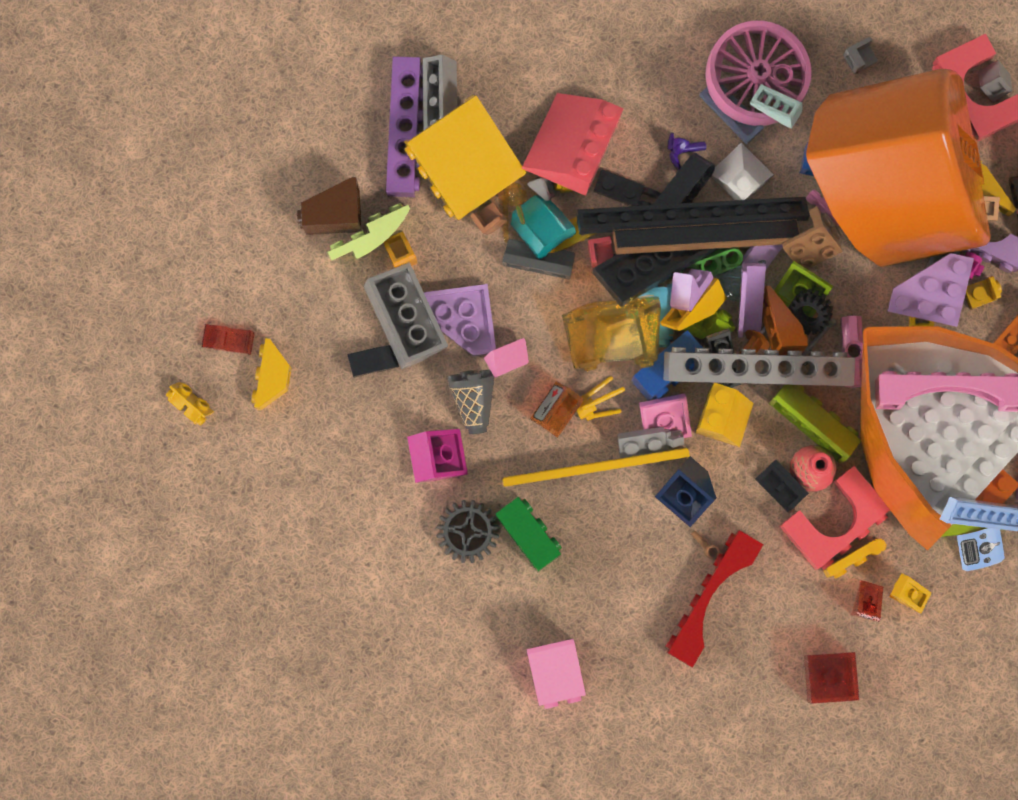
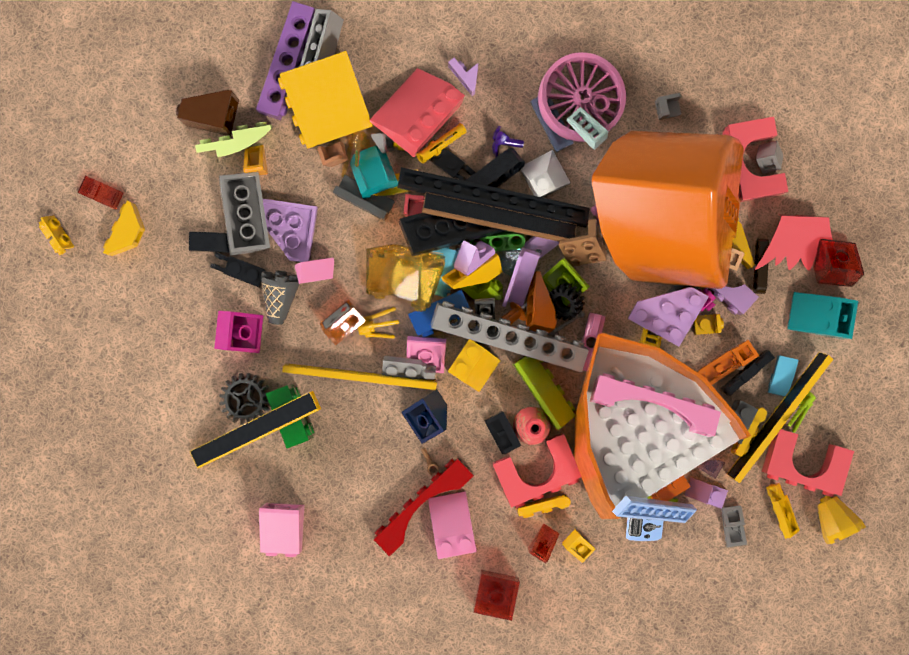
camera: 10 degrees right, 5 degrees up
(417, 383) = (240, 270): none -> black hinge
(494, 560) = (256, 429): none -> black tile
(598, 187) = (425, 154): none -> yellow pin
(619, 89) = (467, 78): none -> lavender slope
(754, 611) = (452, 525): none -> bright pink slope

